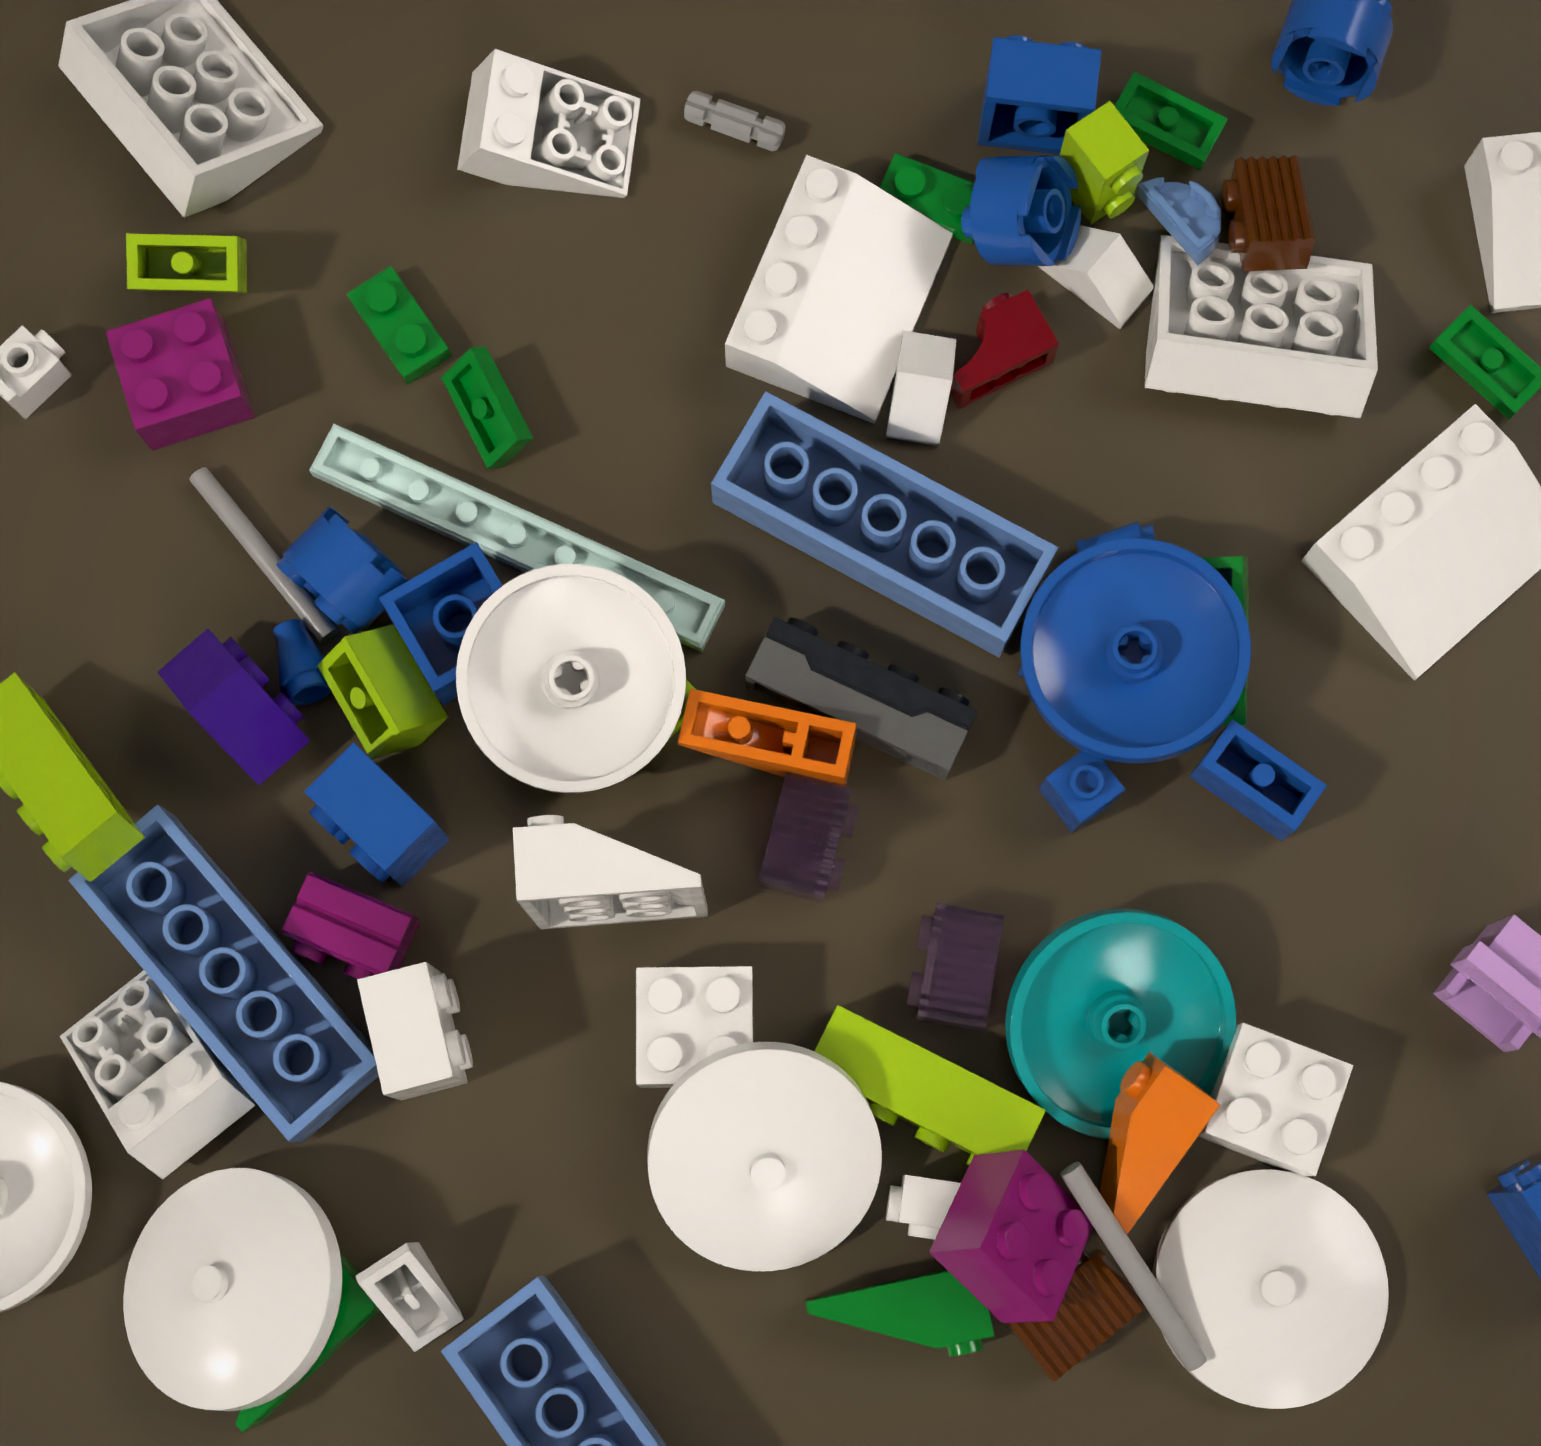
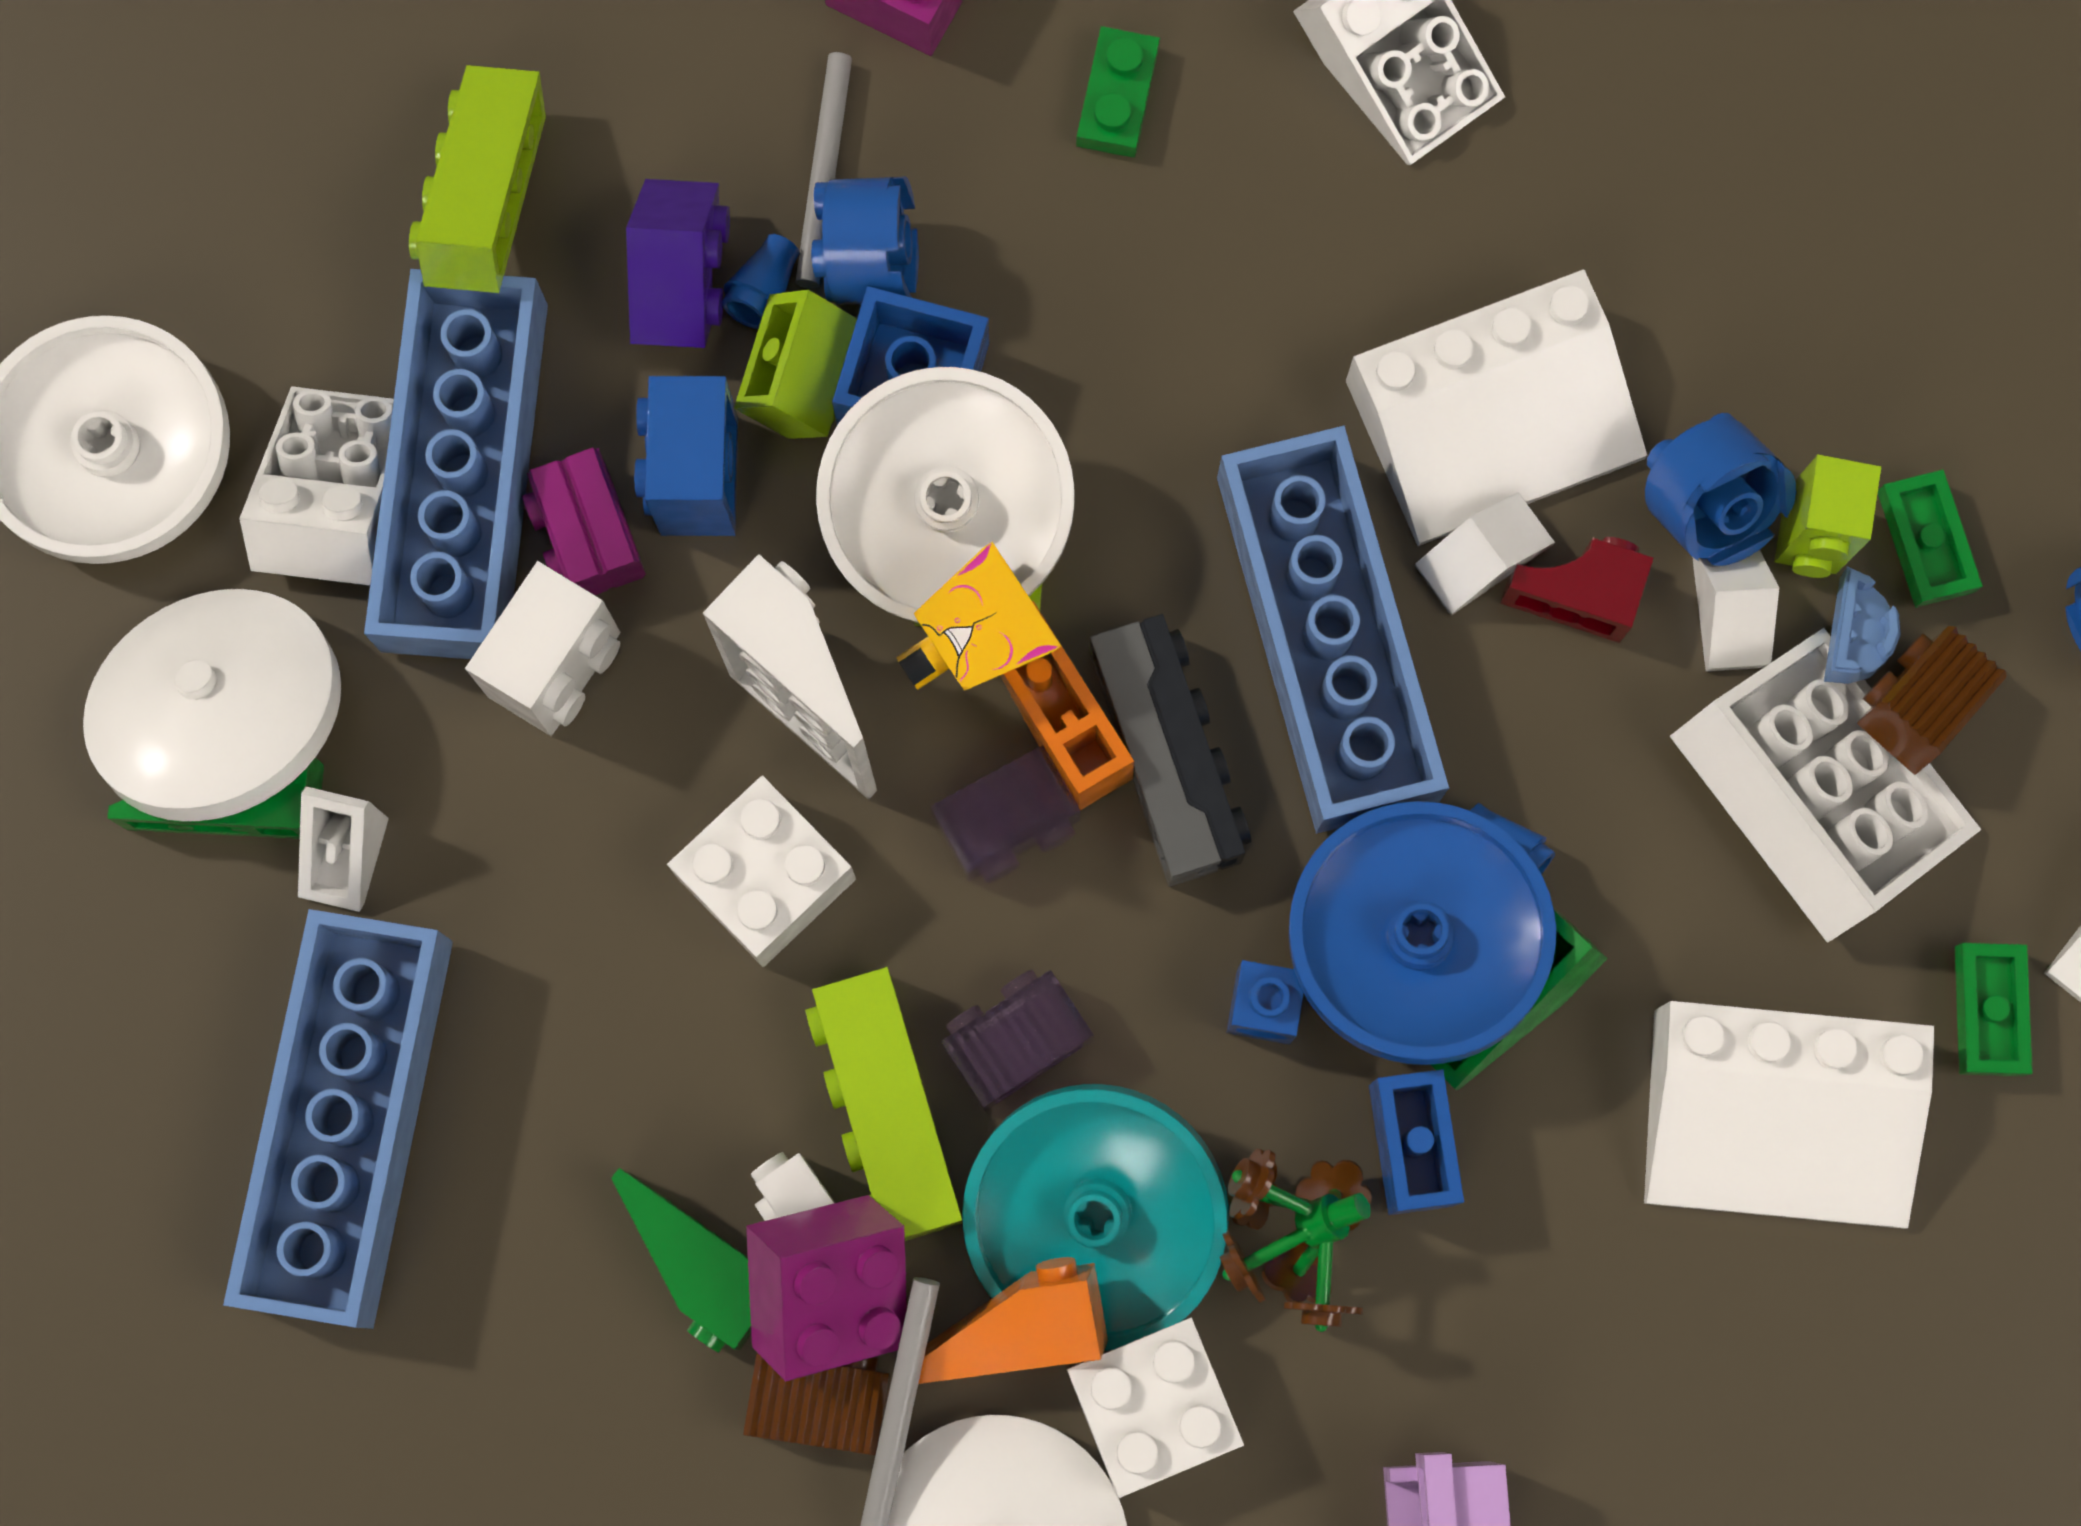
camera: 45 degrees right, 0 degrees up
(487, 407) = (1116, 224): green plate -> none
(498, 526) = (1032, 342): light aqua tile -> none
(679, 736) = (978, 626): none -> yellow torso
(734, 120) = (1562, 188): light grey axle -> none
(764, 1156) = (706, 1023): white dish -> none
(930, 192) = (1659, 395): green plate -> none
(1036, 93) = (1833, 401): blue brick -> none
(1252, 872) = (1301, 1261): none -> reddish brown plant

